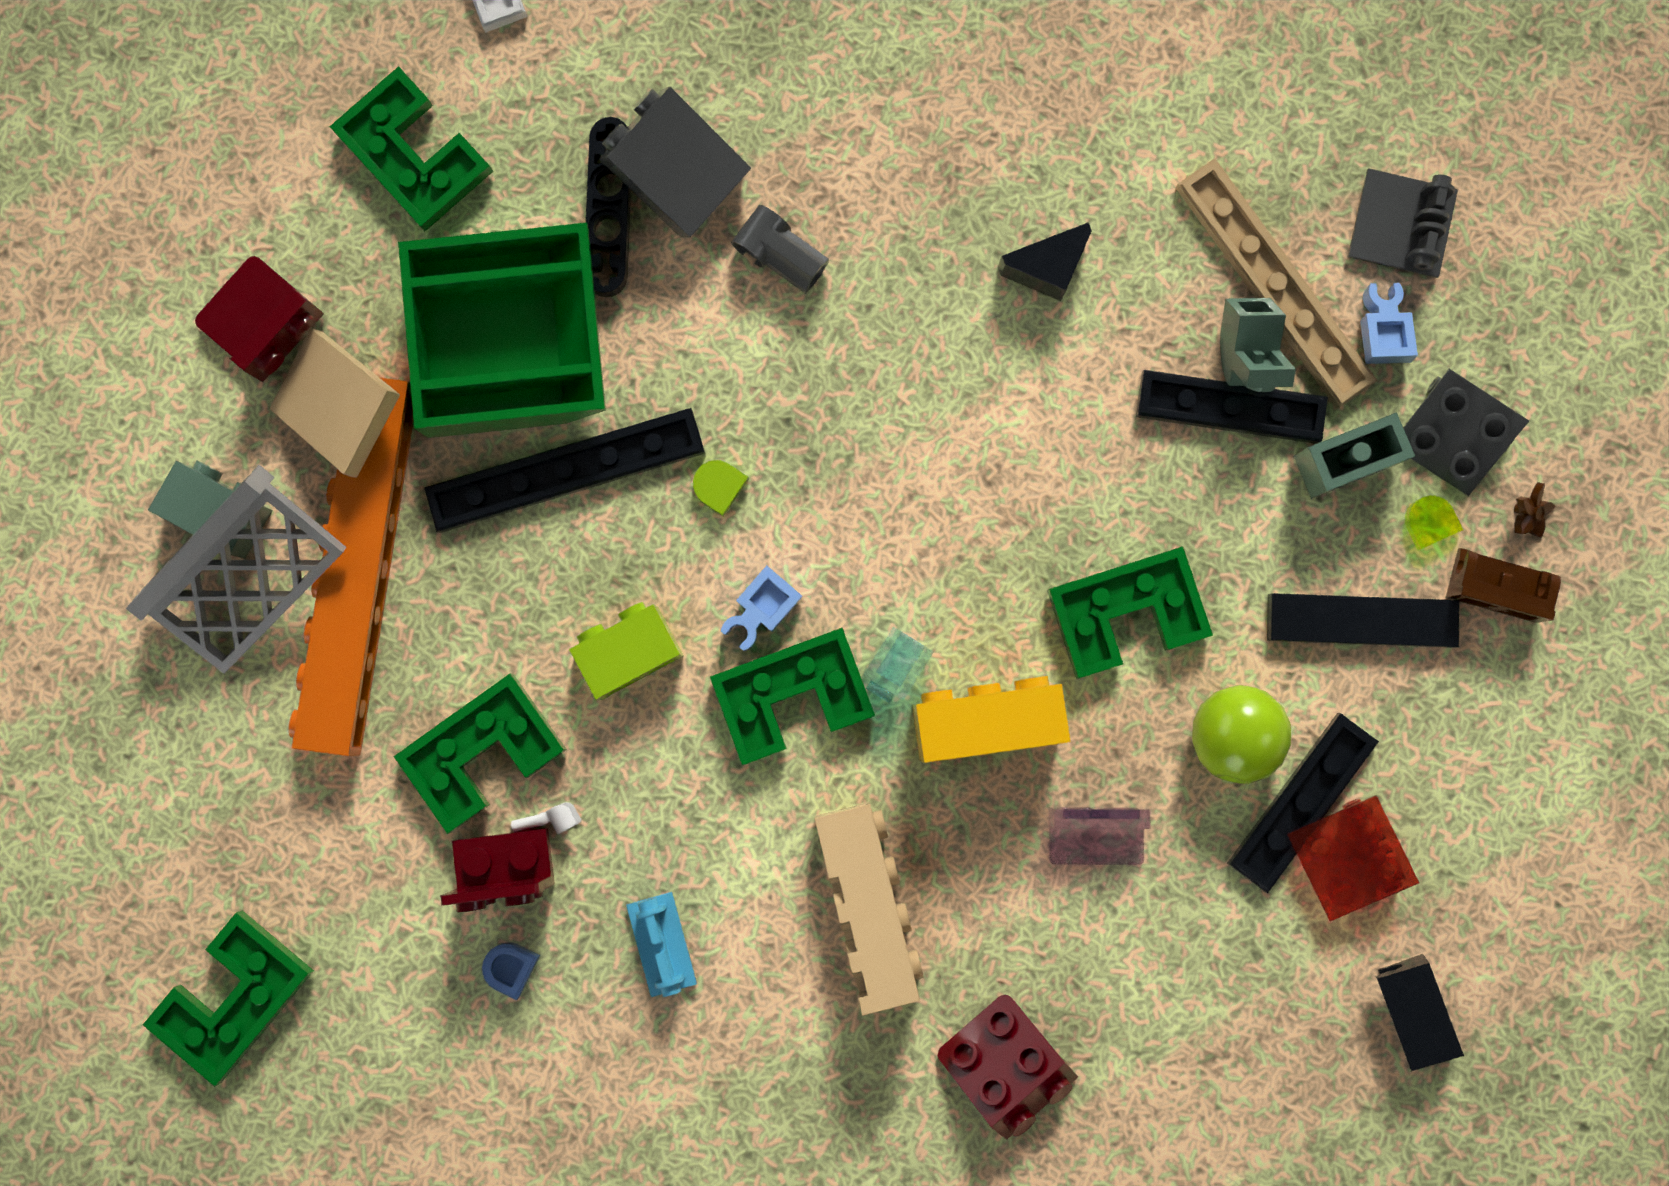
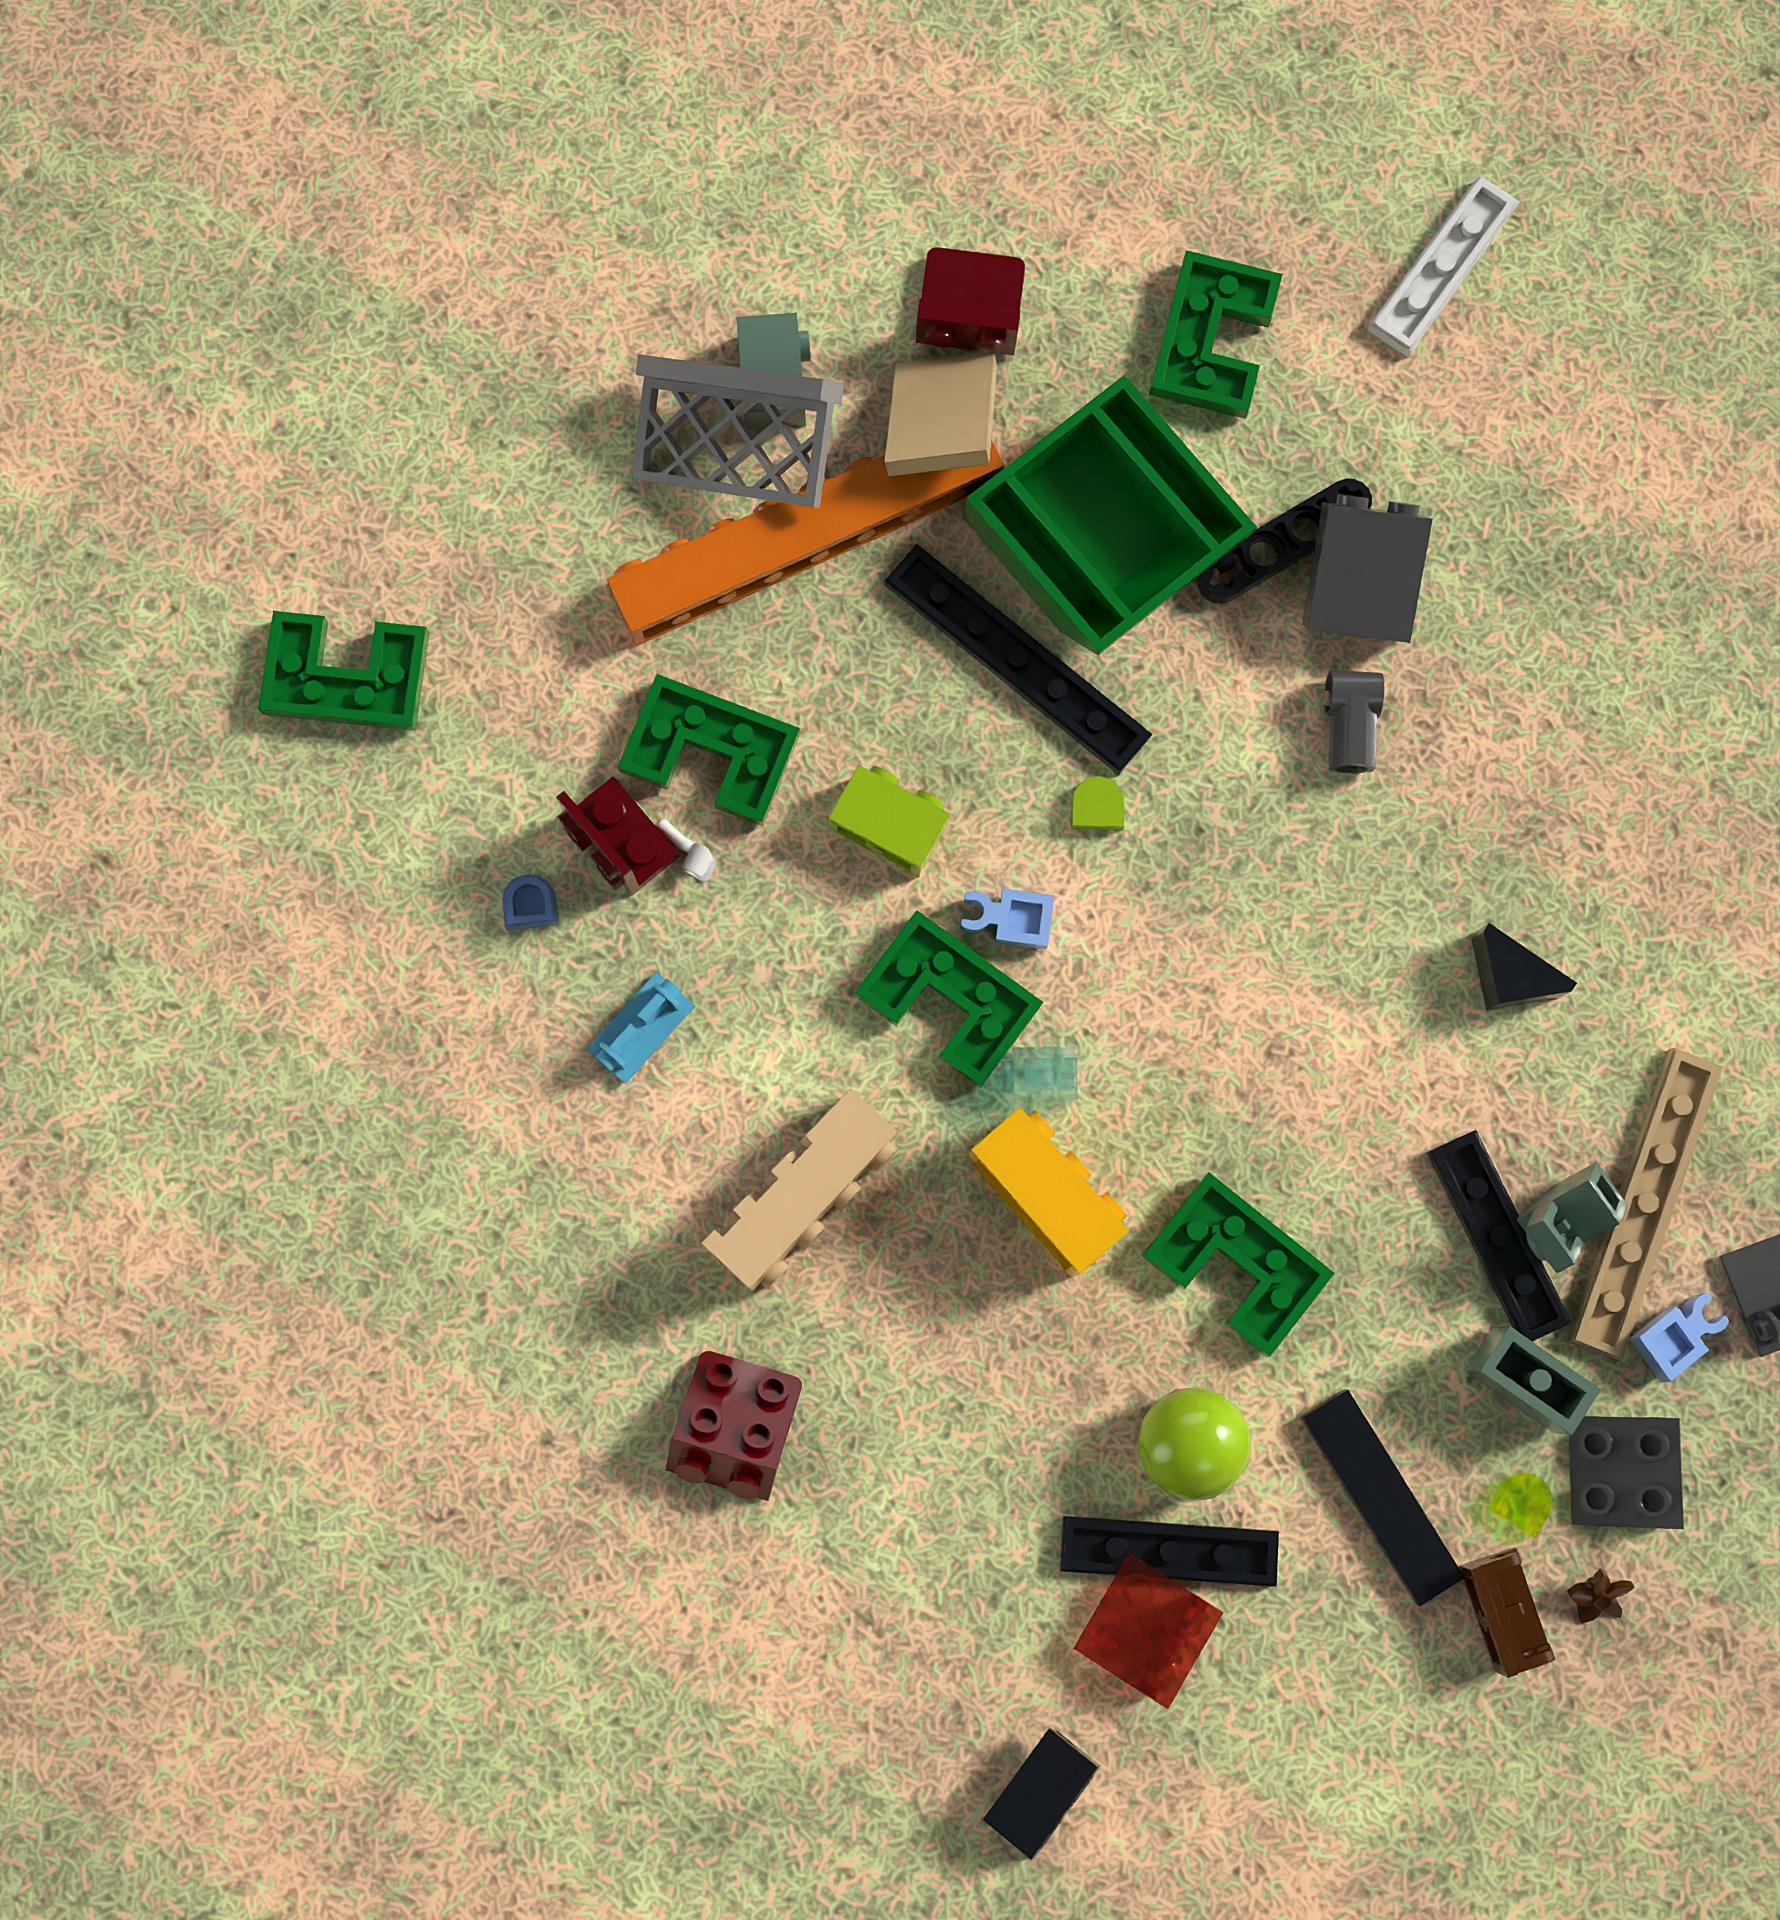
camera: 50 degrees right, 5 degrees down
(1097, 835) = (1007, 1371): panel -> none

